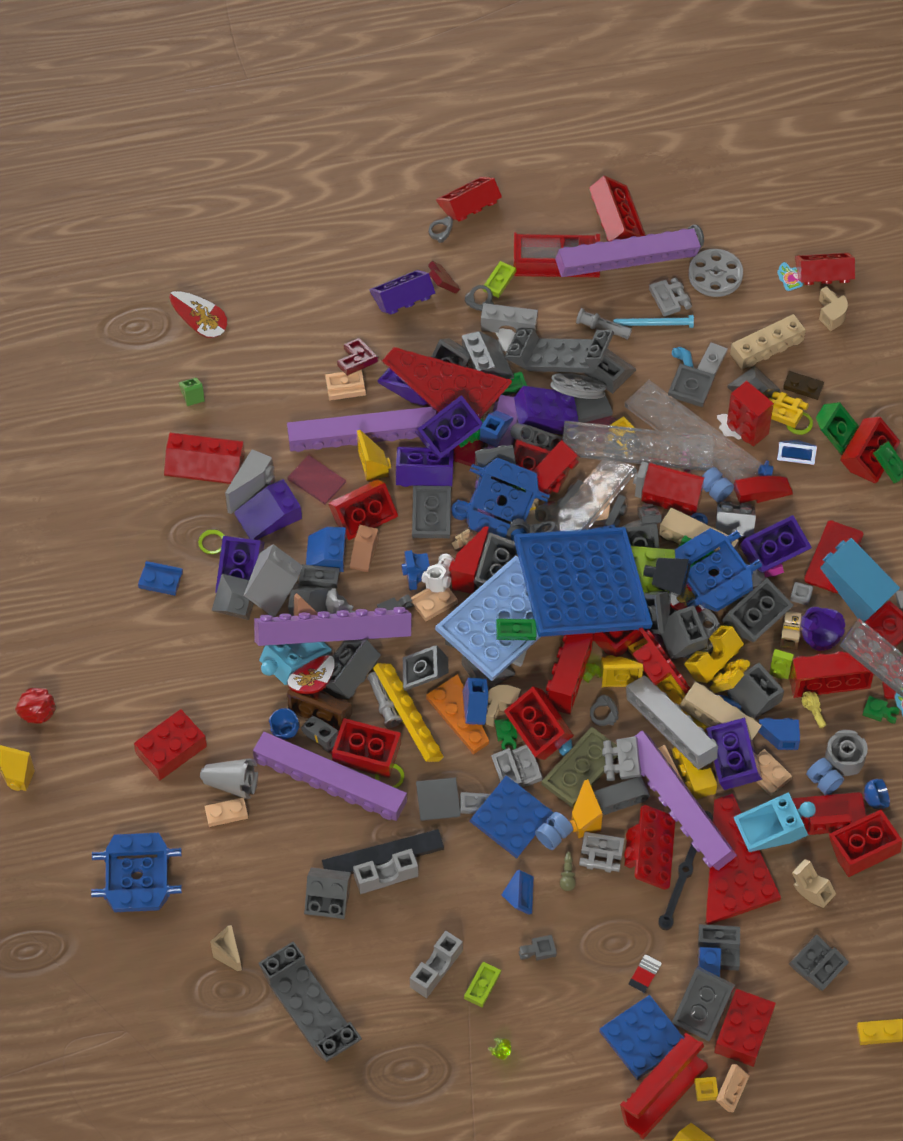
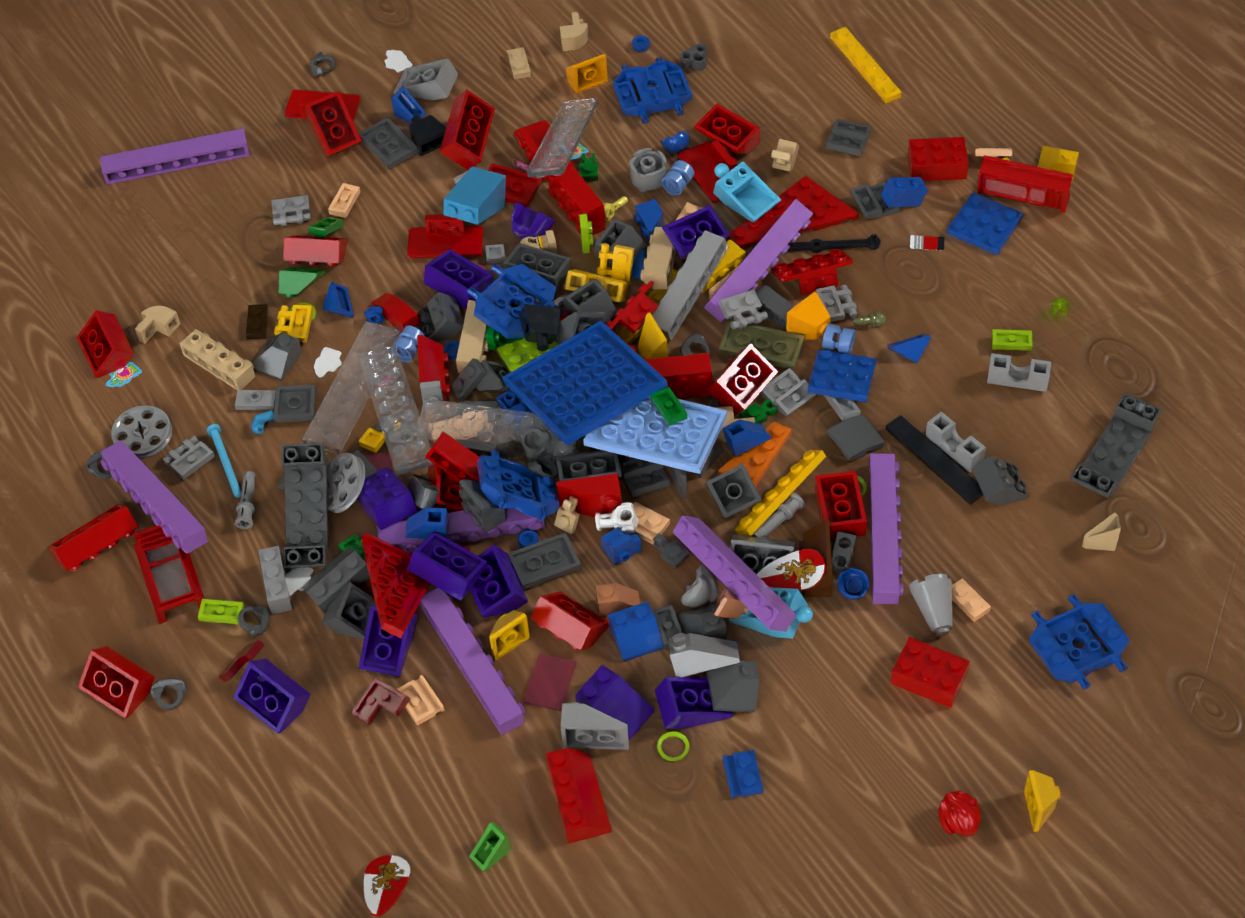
camera: 110 degrees left, 5 degrees down
(541, 947) = (955, 312): dark grey plate -> none
(703, 1003) = (939, 182): dark grey plate -> none
(749, 413) = (322, 330): red brick -> none

